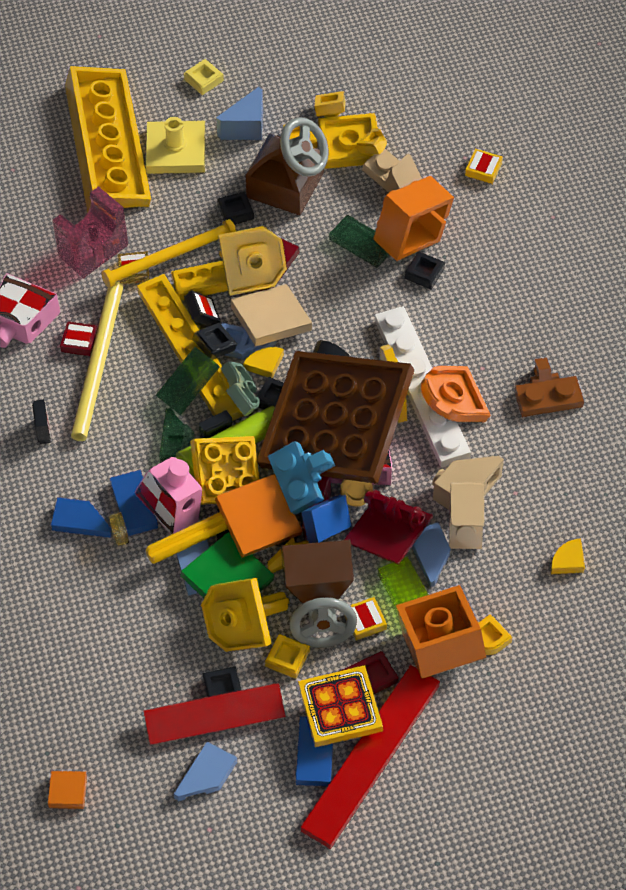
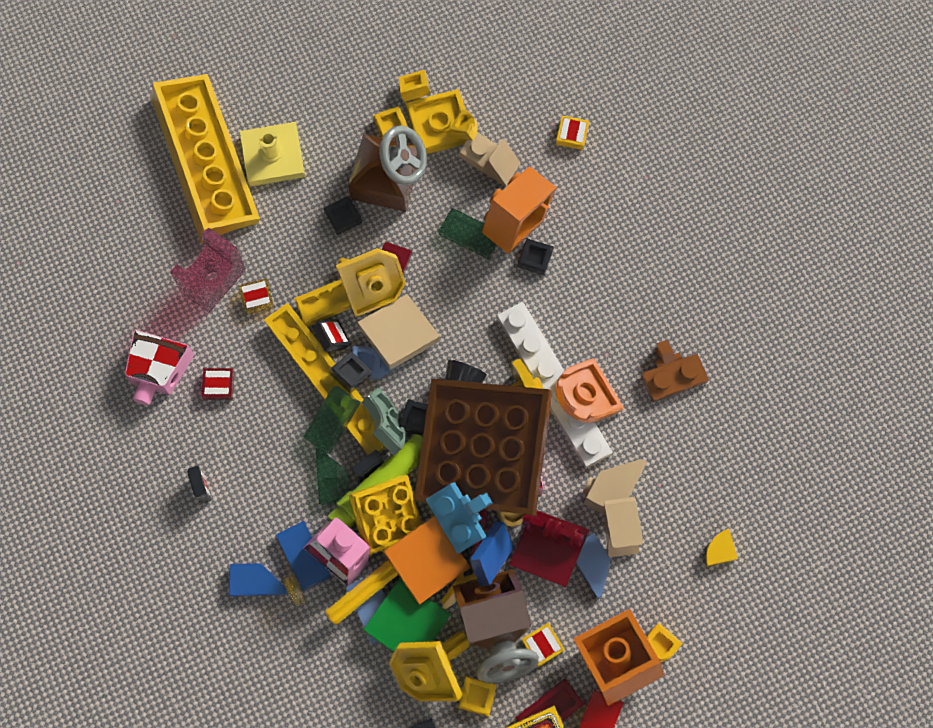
camera: 10 degrees left, 15 degrees up
(97, 363) = (240, 406): light yellow piece -> none
(110, 277) = (289, 277): yellow bar -> none
(203, 77) = (285, 70): light yellow tile -> none
(243, 119) = (333, 115): medium blue slope -> none
(264, 361) = (400, 381): yellow tile -> none
(401, 582) = (575, 607): clear neon green tile -> none

